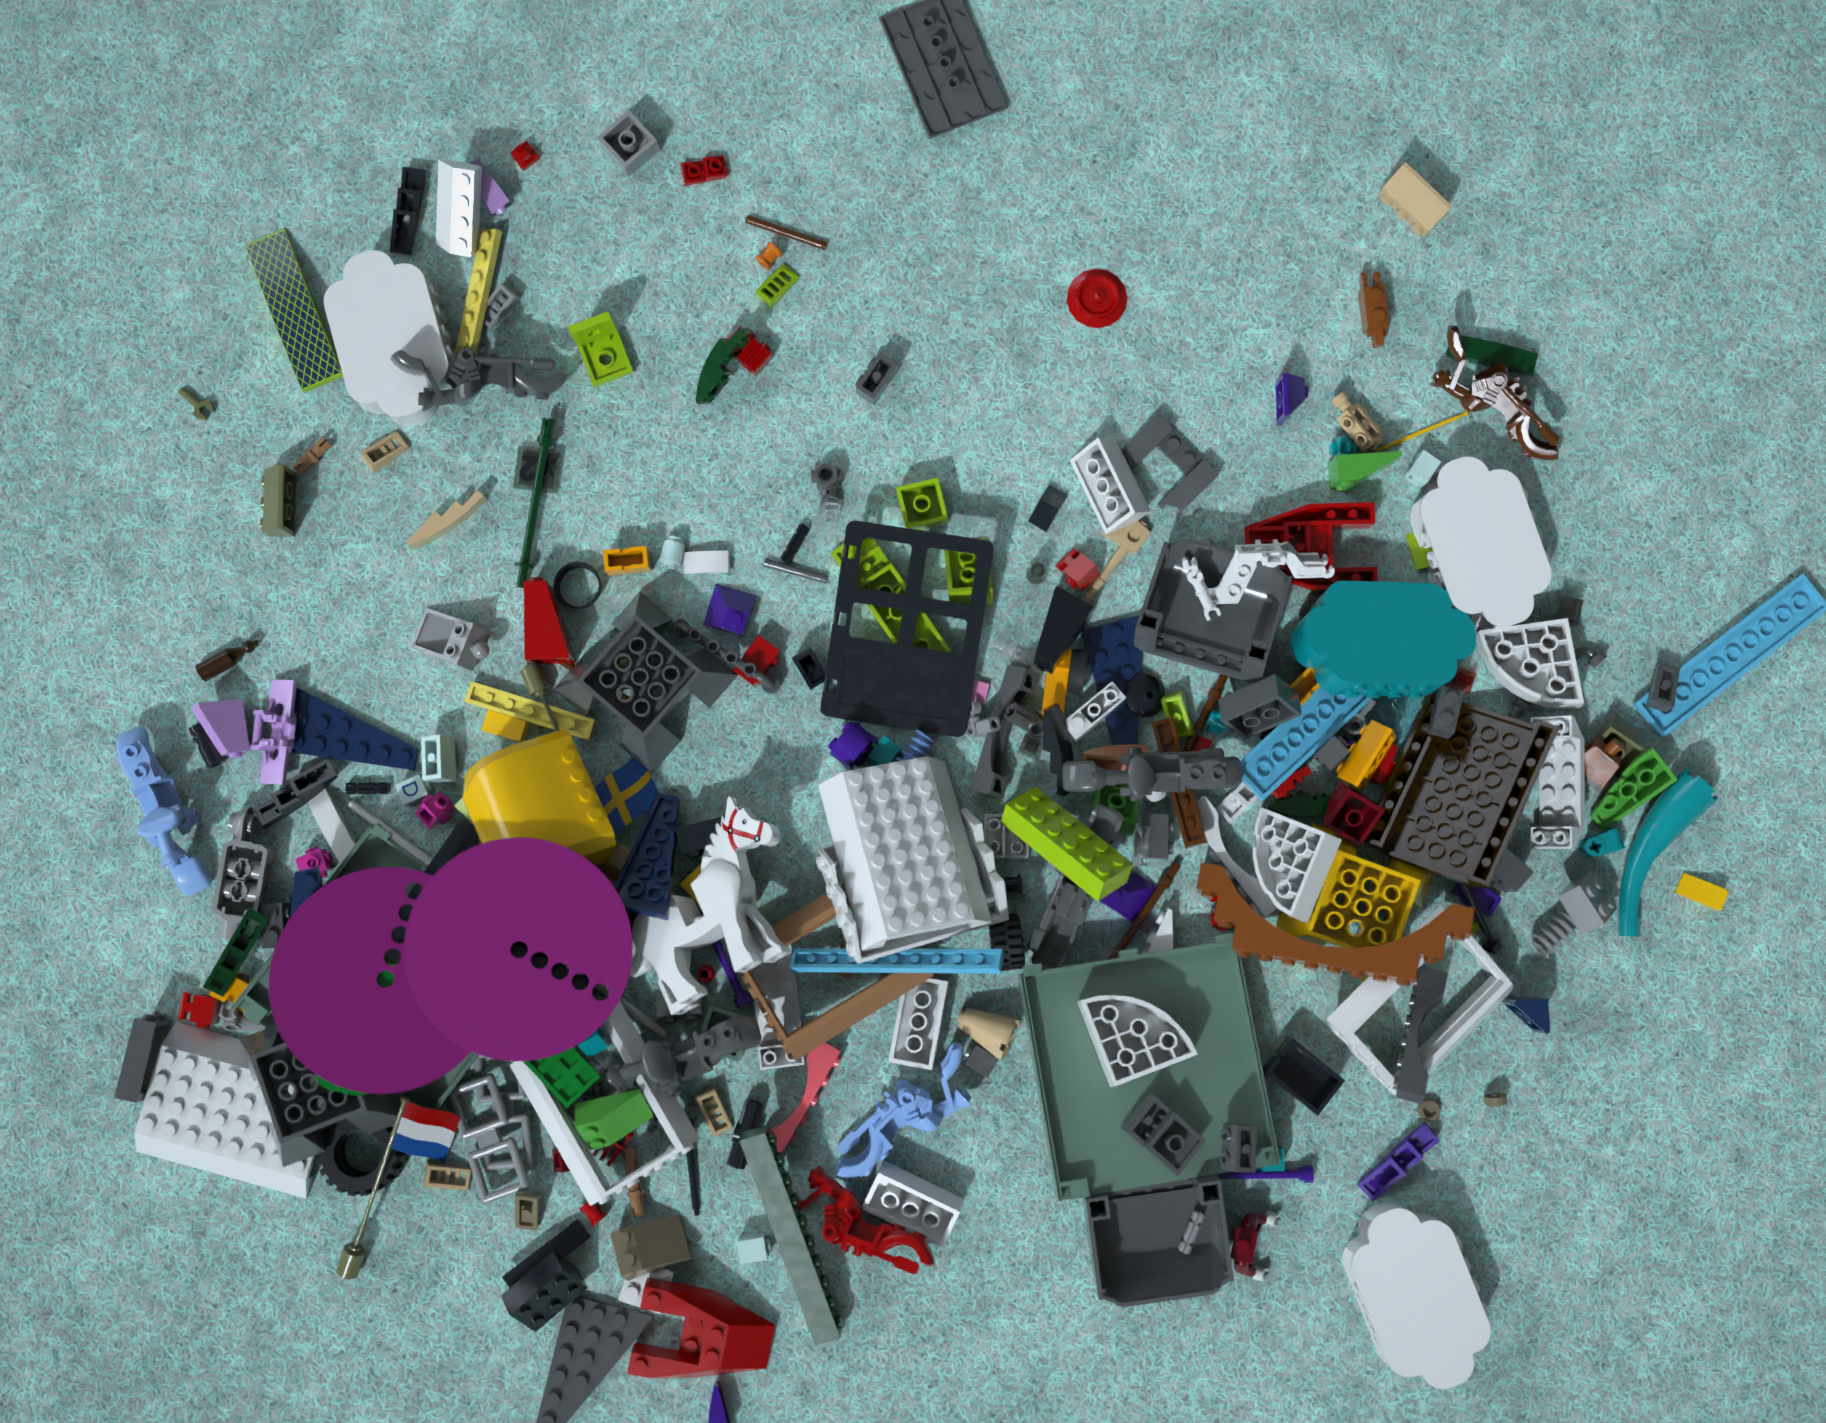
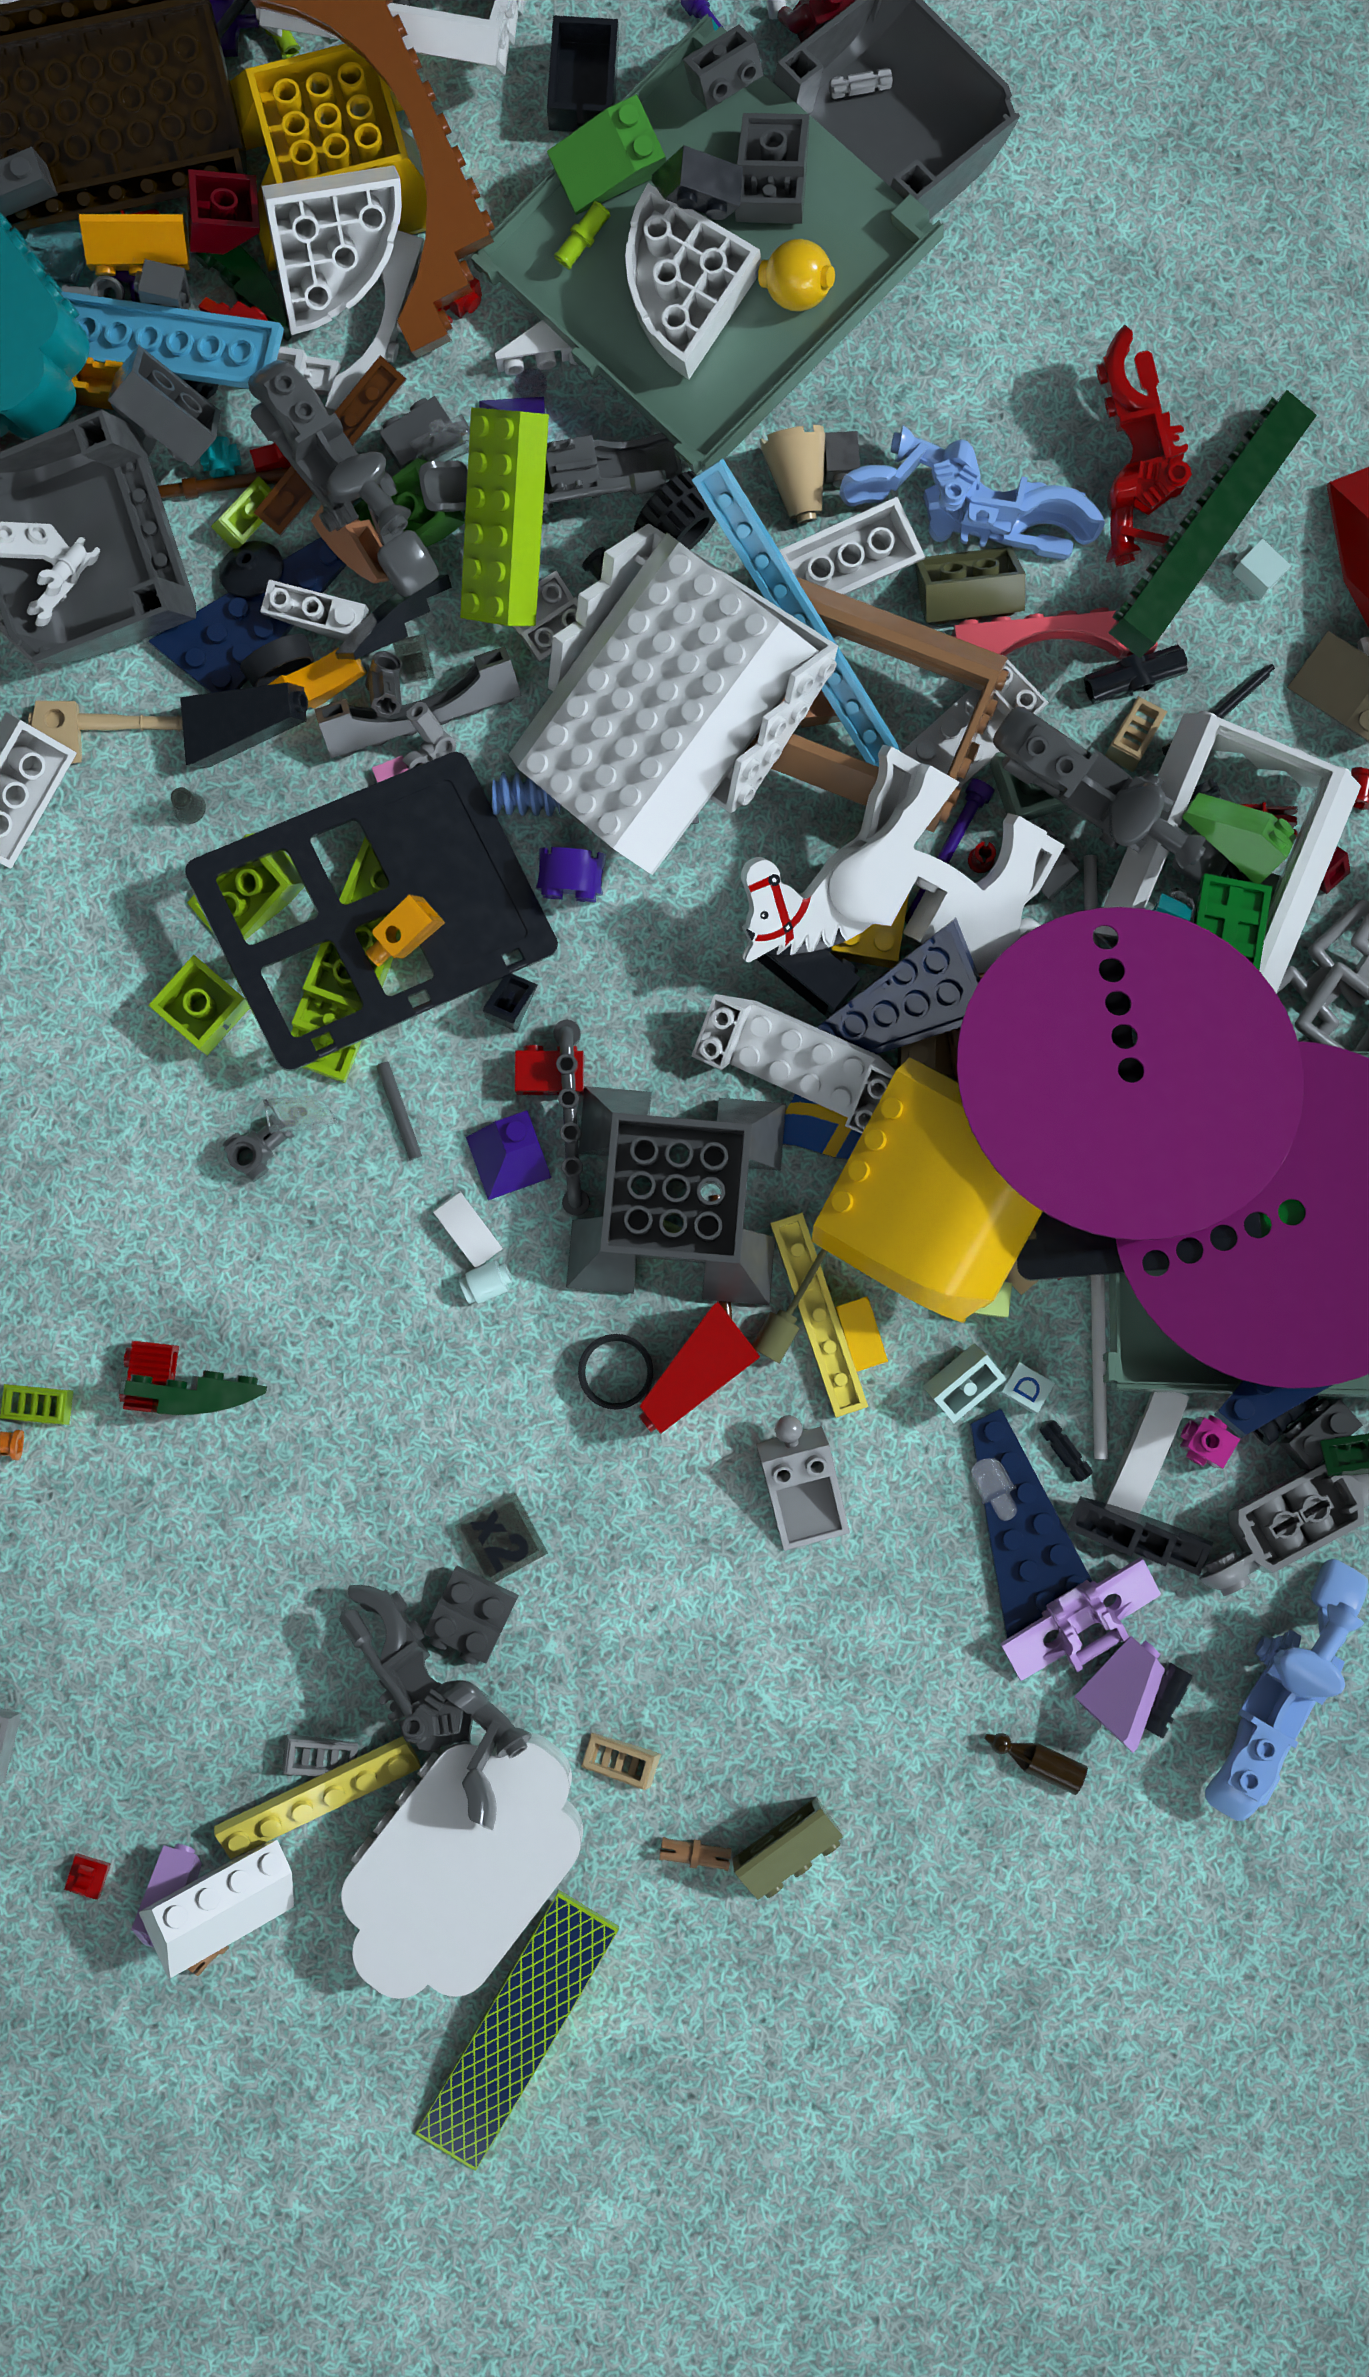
camera: 130 degrees left, 0 degrees up
(198, 405) = (736, 2065): olive bar -> none
(373, 735) = (994, 1486): none -> clear arm
(407, 210) = (273, 1980): black slope -> none
(435, 810) = (1030, 1338): dark pink brick -> none
(439, 525) = (666, 1612): tan slope -> none
(509, 426) = (470, 1616): none -> dark grey plate
(545, 441) = (457, 1552): dark green bar -> none
(597, 338) = (269, 1581): lime bracket -> none
(627, 560) = (537, 1329): light orange brick -> none
(635, 1192) = (1278, 780): medium nougat pin -> none
(667, 794) = (793, 1057): none -> white slope
(795, 543) = (364, 1136): black axle -> none
(859, 1080) = (971, 585): none -> olive slope
(876, 379) = (71, 1180): dark grey brick -> none
(879, 634) = (416, 923): none -> light orange torso
(884, 752) = (552, 831): teal brick -> none
(913, 1203) = (1068, 417): white slope -> none
(1013, 652) = (309, 762): clear axle -> none
(1047, 508) = (93, 849): black slope -> none
(1078, 570) = (148, 752): red brick -> none
(1088, 1100) = (797, 275): none -> yellow brick
(1164, 883) = (467, 390): reddish brown bar -> none
(1173, 1079) = (700, 183): none -> black slope
(1201, 1002) = (582, 235): none -> lime pin
(1235, 1046) = (607, 155): none -> bright green slope

